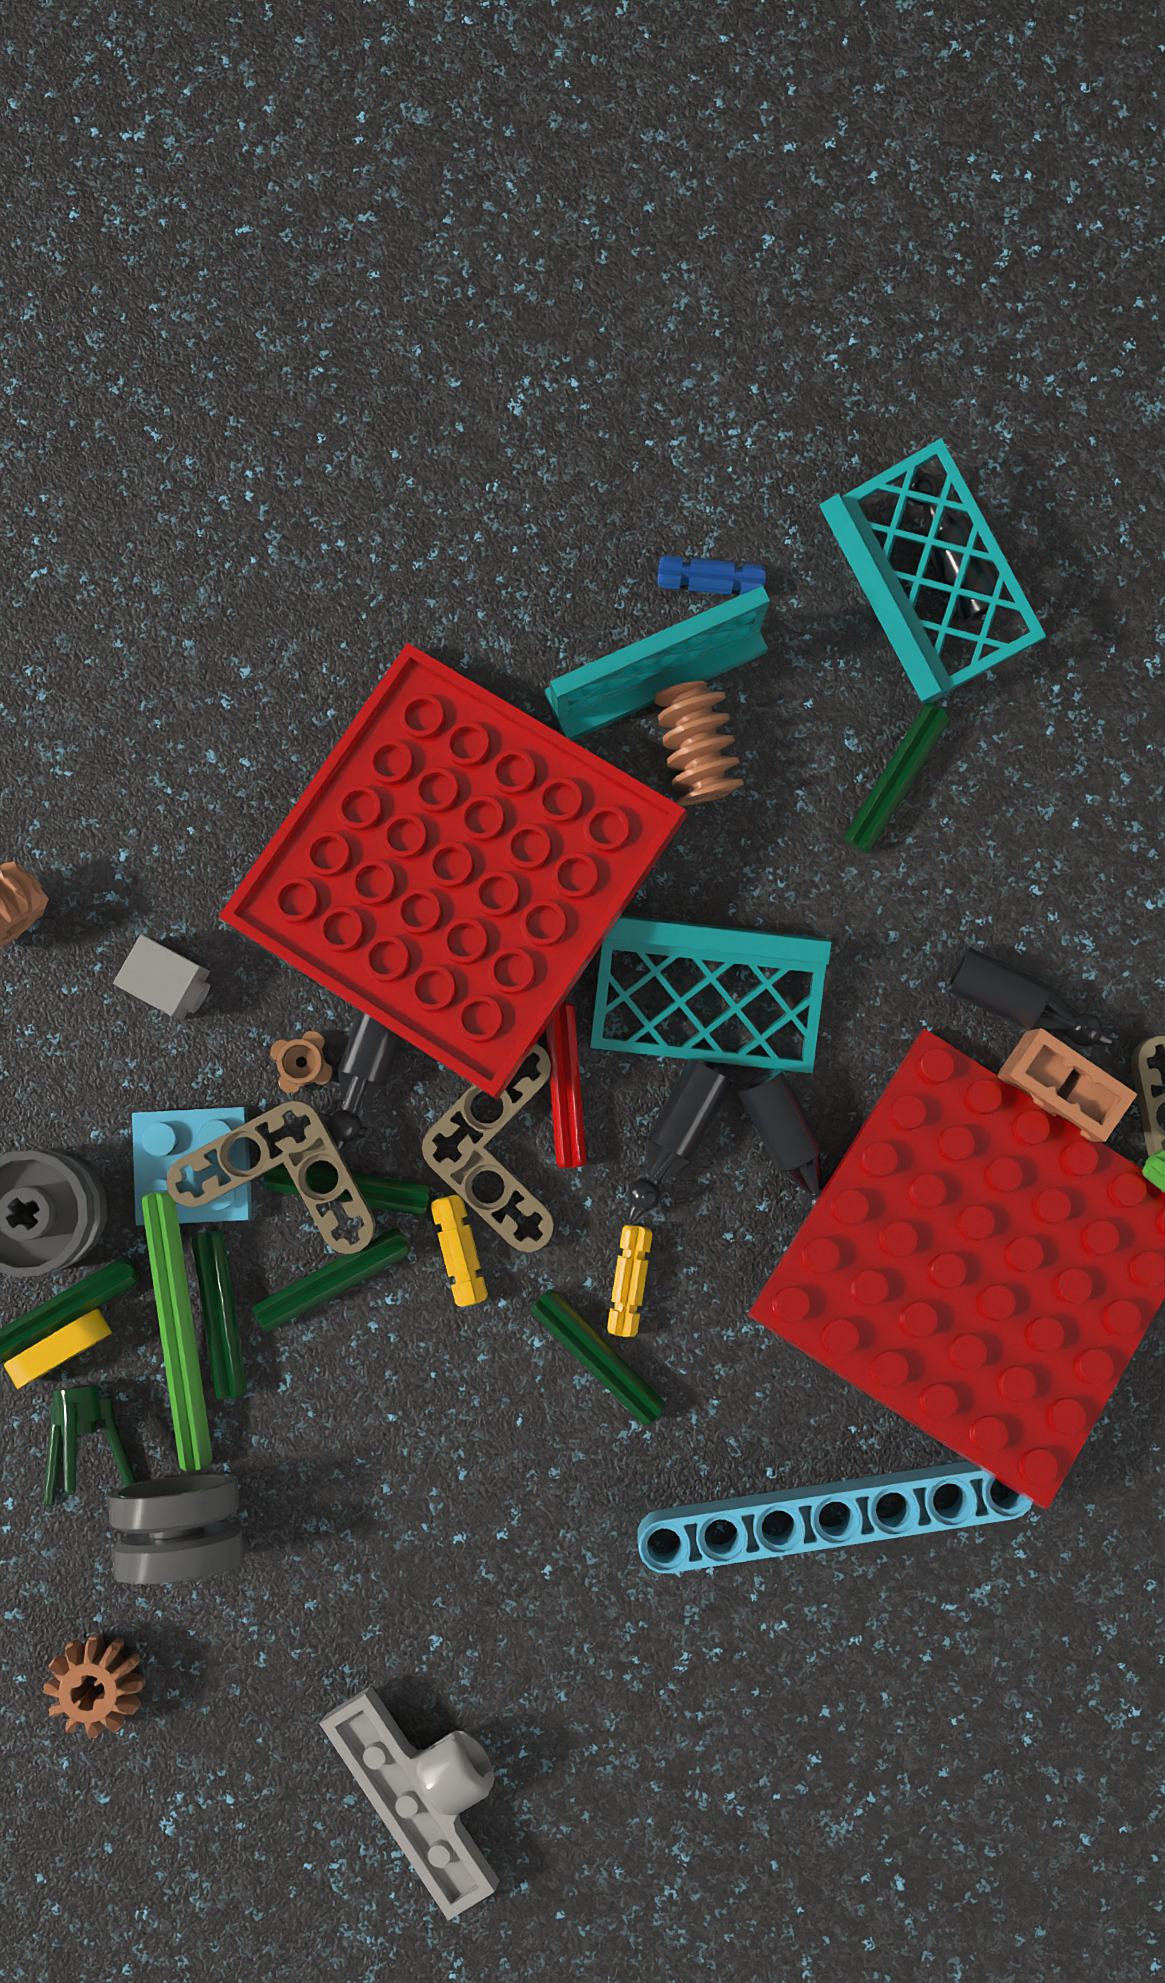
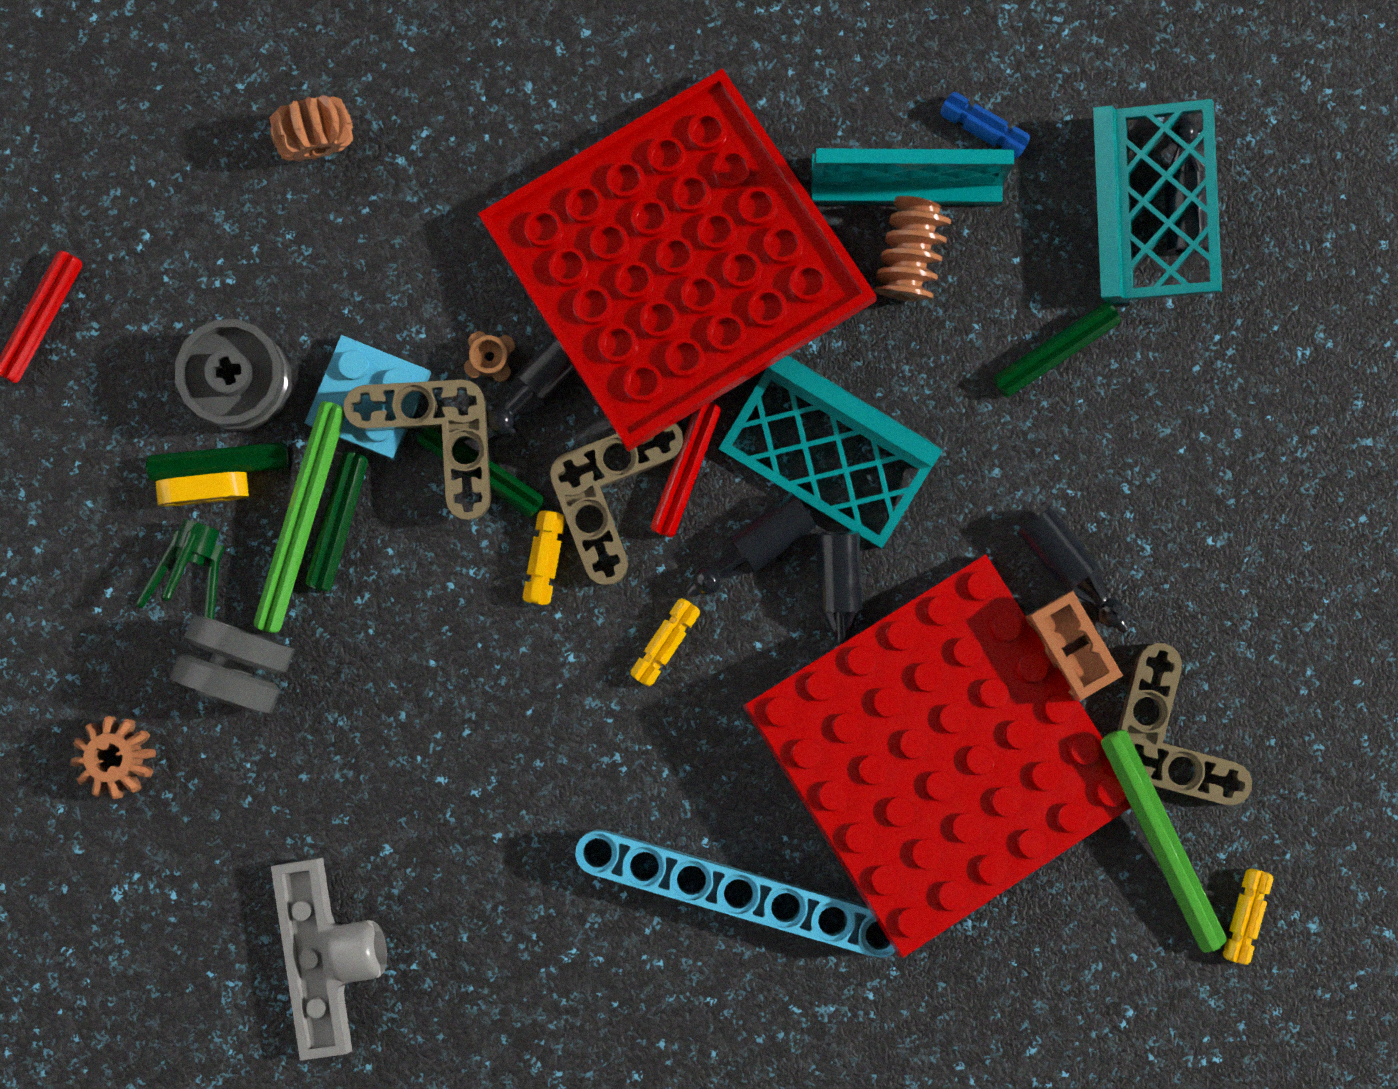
camera: 25 degrees right, 0 degrees up
(163, 978) = (413, 242): light grey brick -> none
(331, 1280) = (435, 534): dark green axle -> none
(598, 1357) = (613, 689): dark green axle -> none

